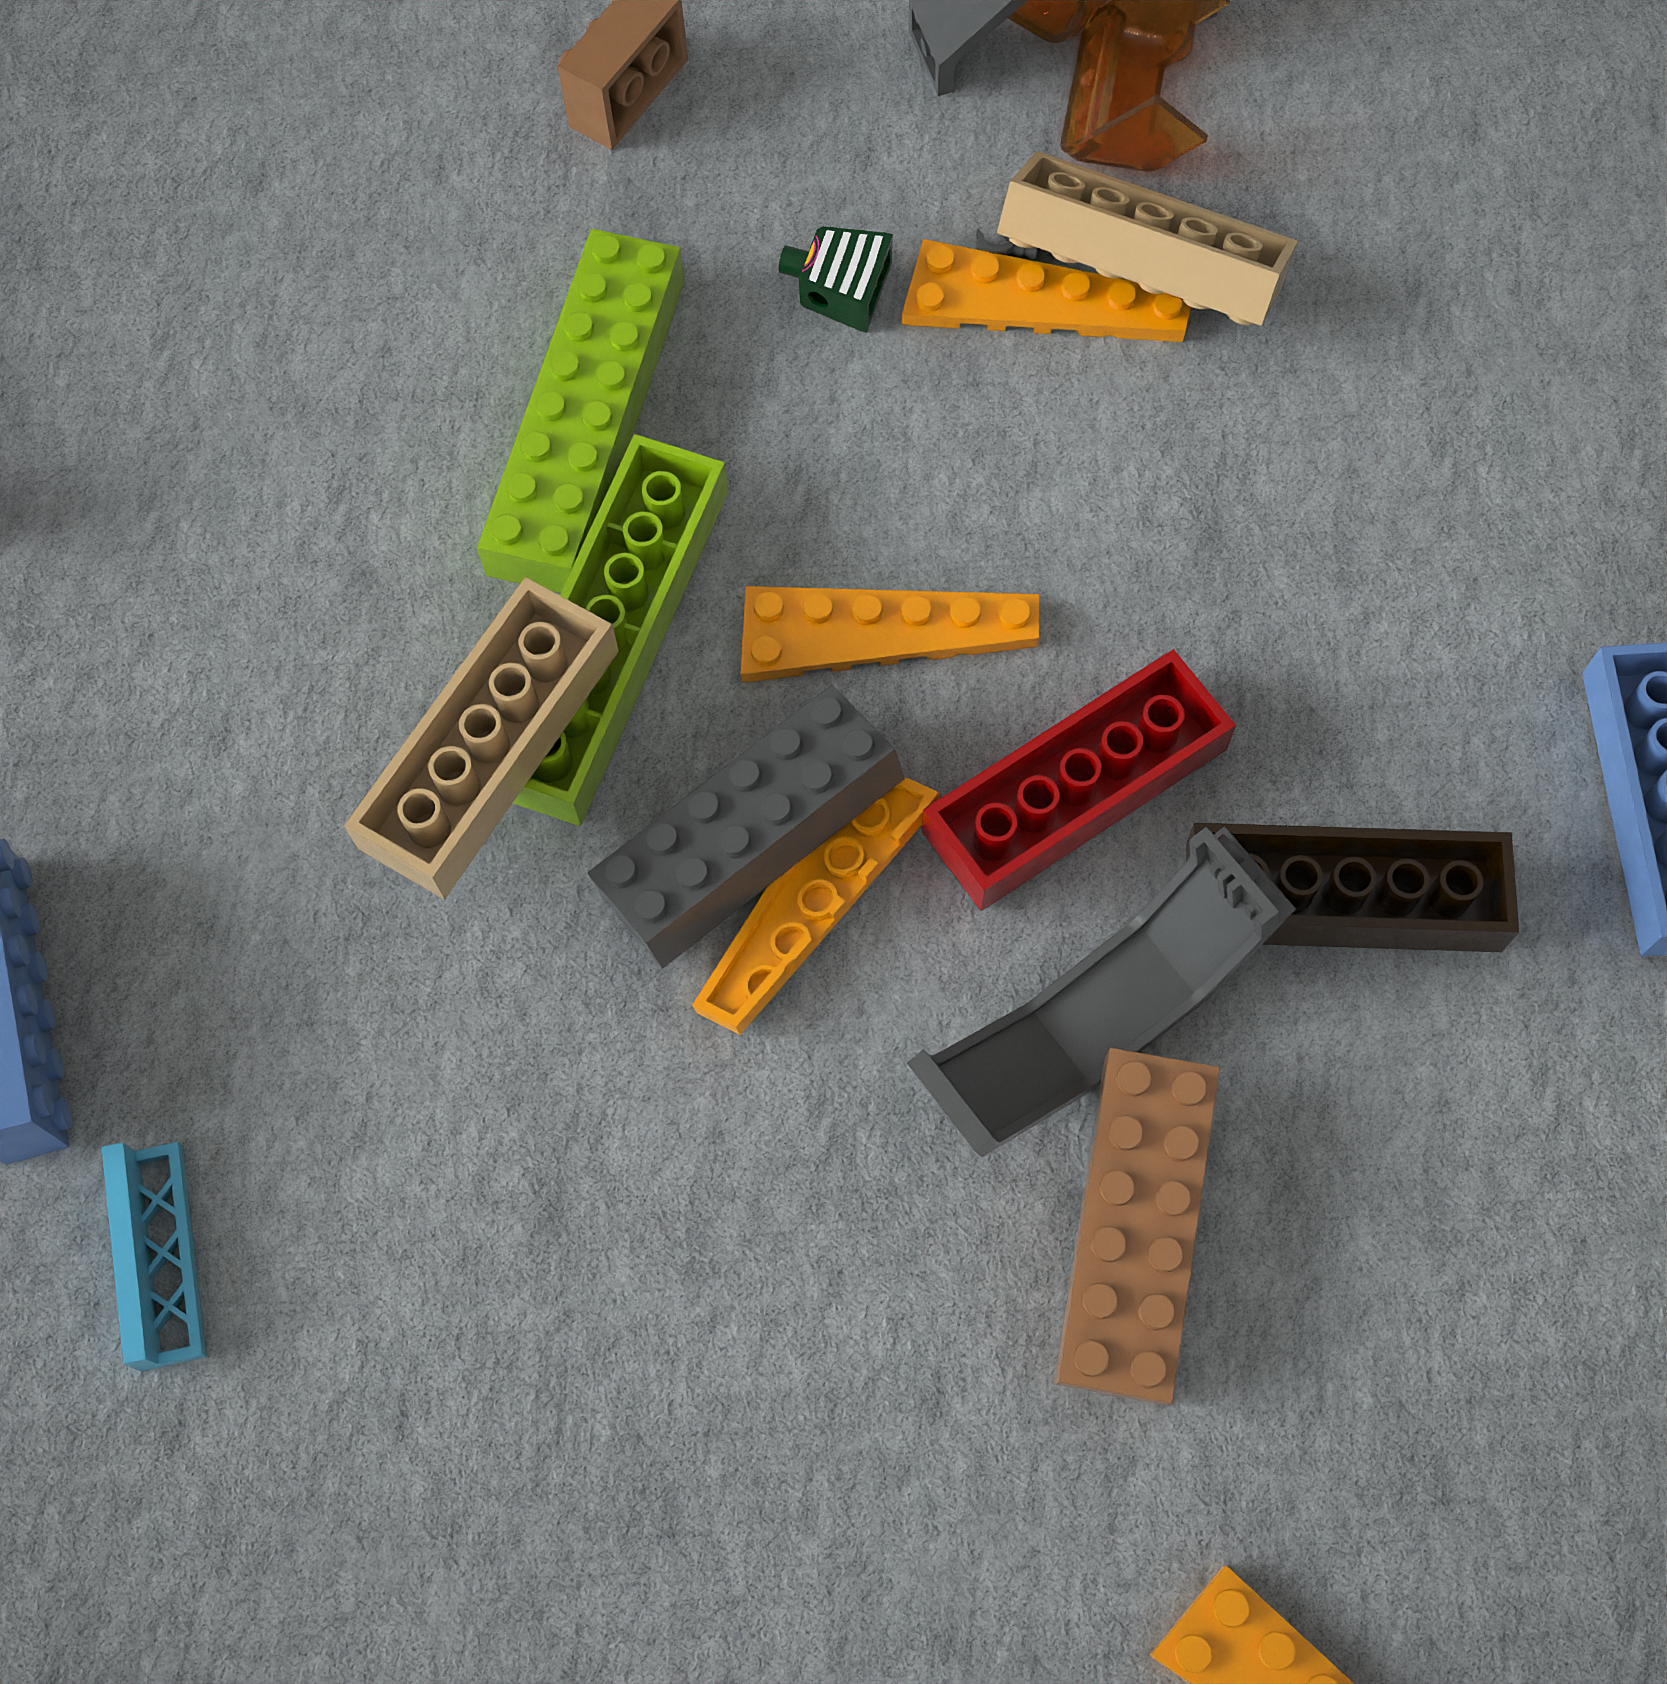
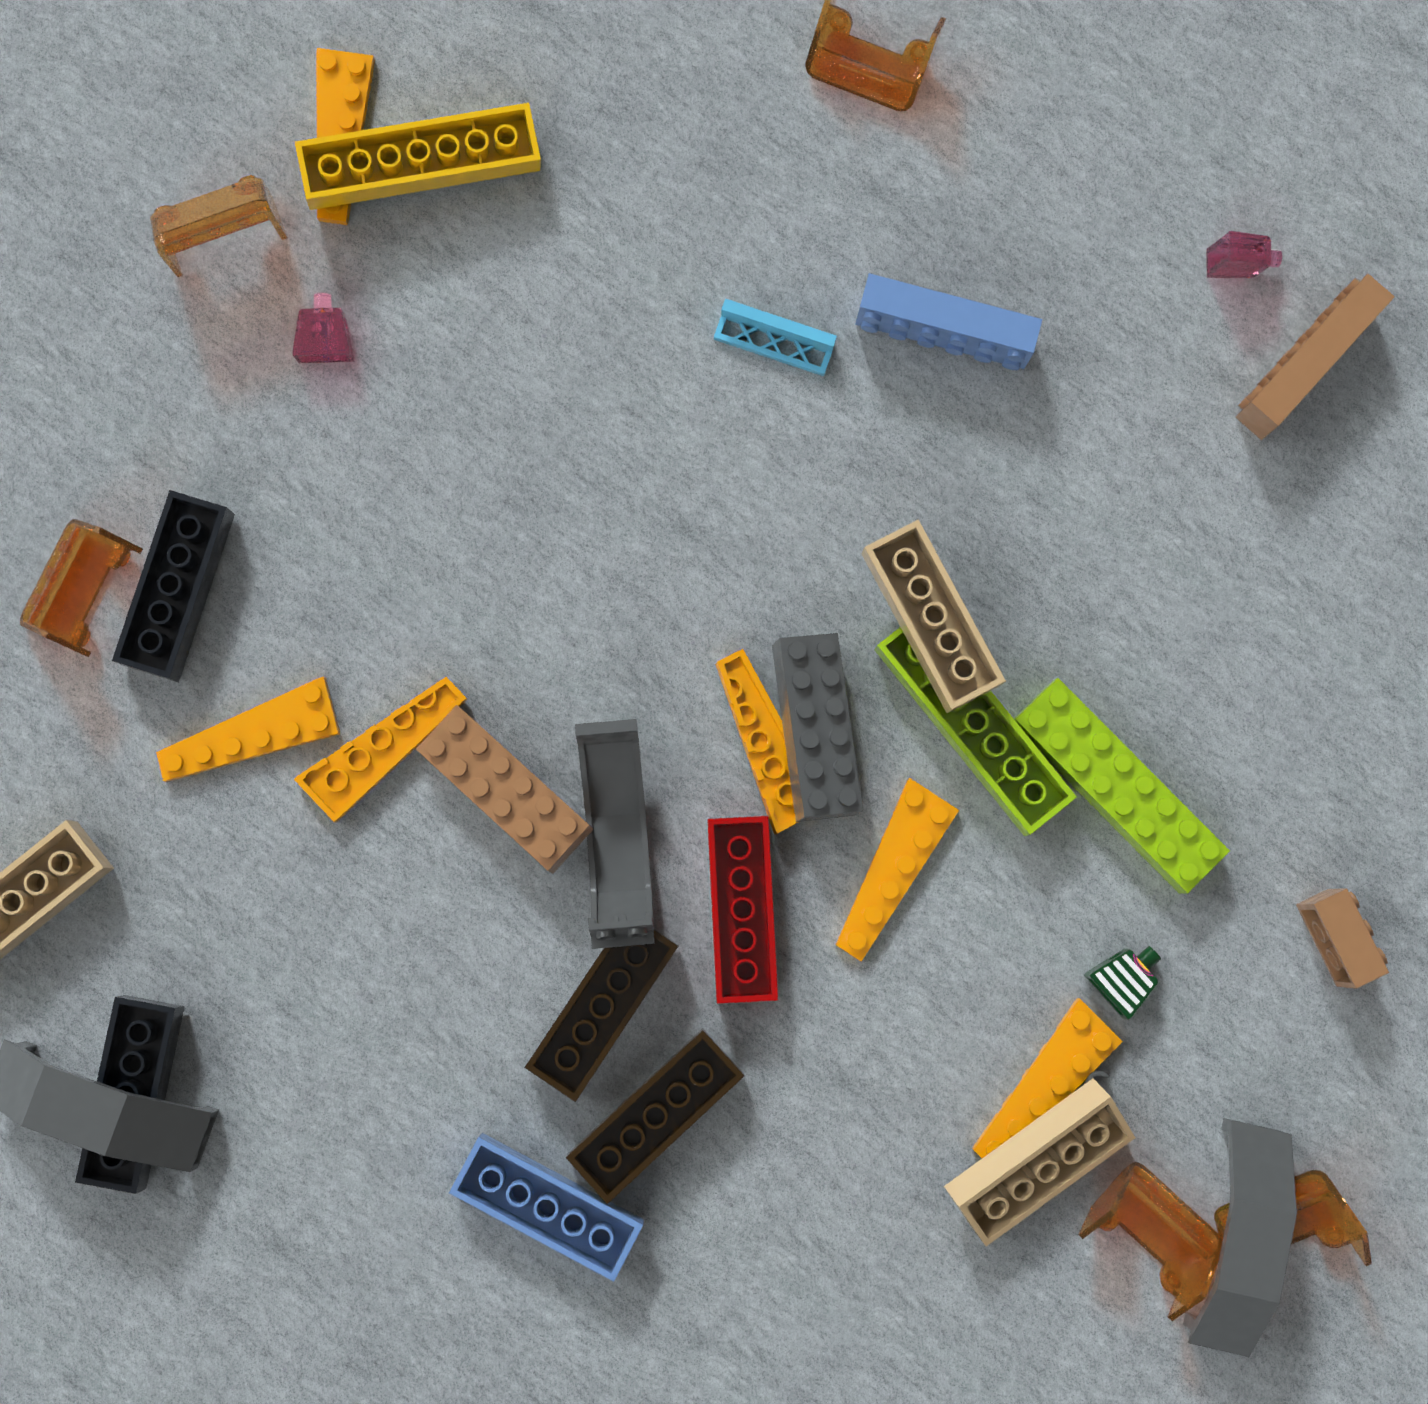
camera: 115 degrees right, 15 degrees up
(1245, 1490) = (361, 764): none -> light orange wing
(1444, 728) = (655, 1115): none -> dark brown brick

